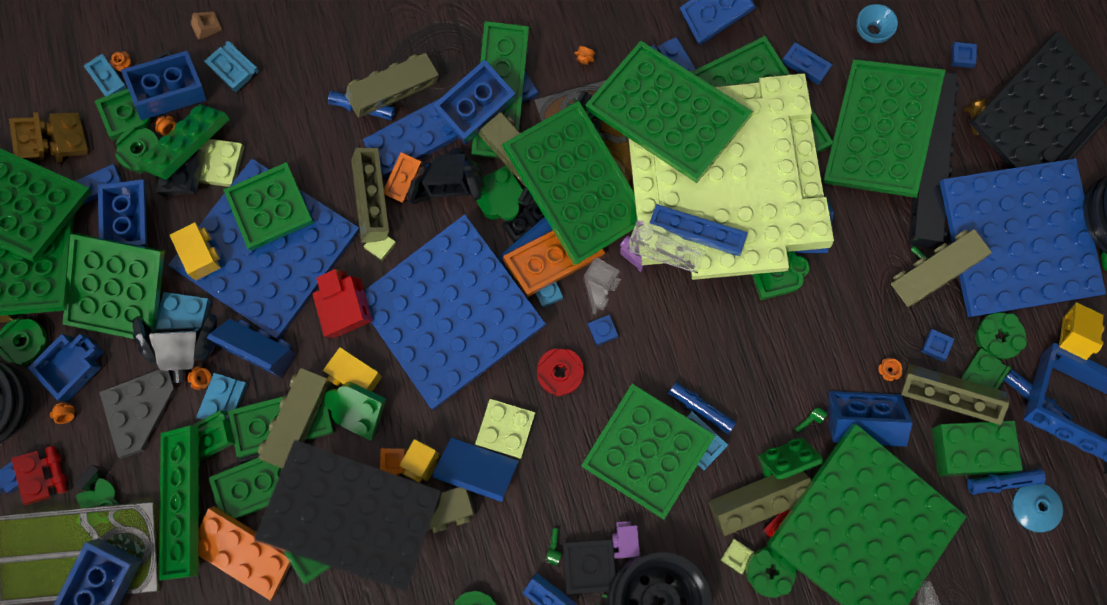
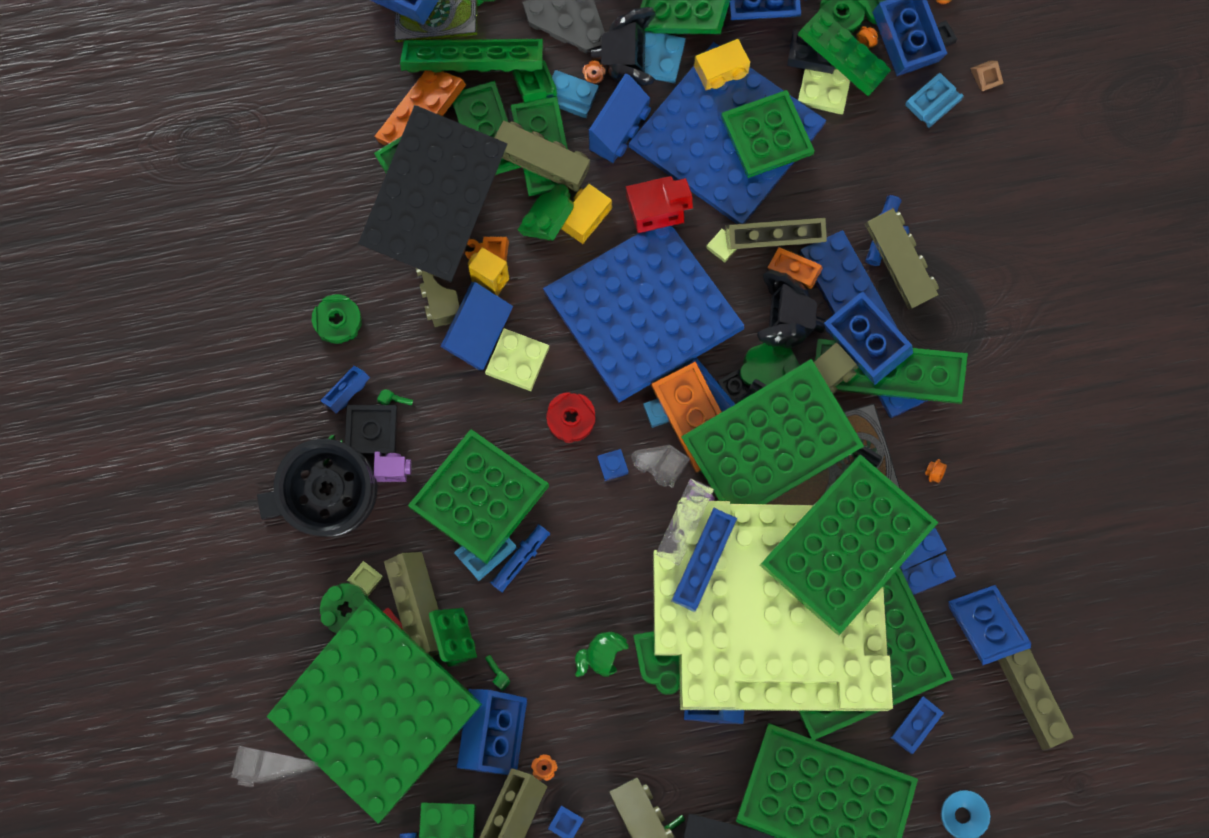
camera: 90 degrees right, 0 degrees up
(784, 323) = (600, 654): none -> green hair

